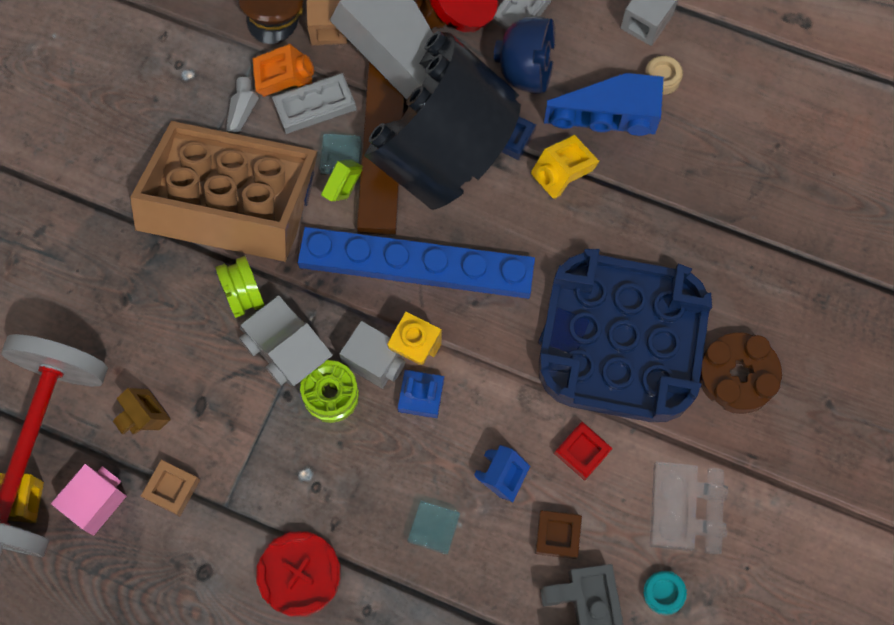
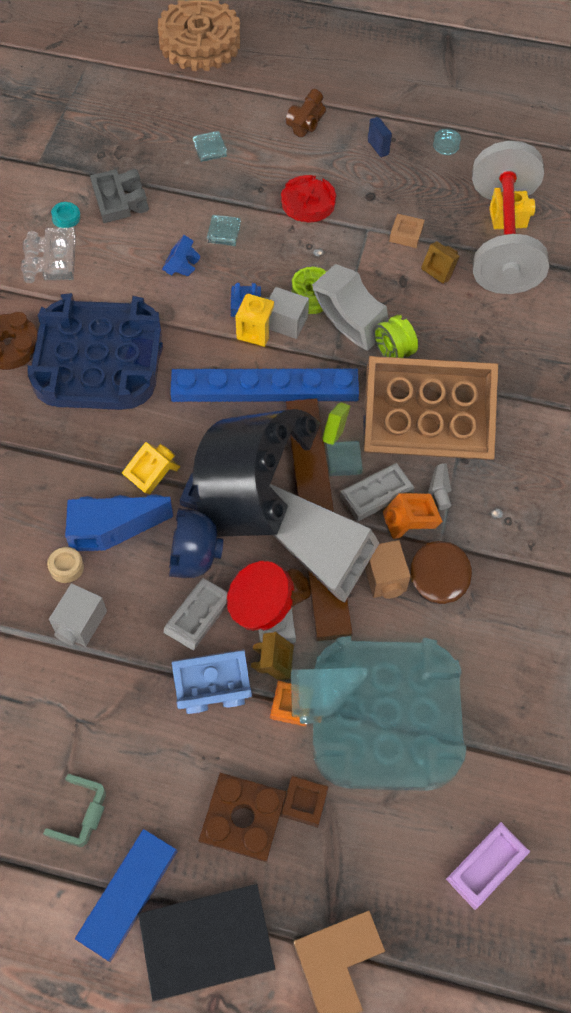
camera: 170 degrees right, 10 degrees down
(90, 498) = (457, 212): bright pink brick -> none
(558, 534) = (139, 235): reddish brown tile -> none
(583, 451) = (124, 282): red tile -> none

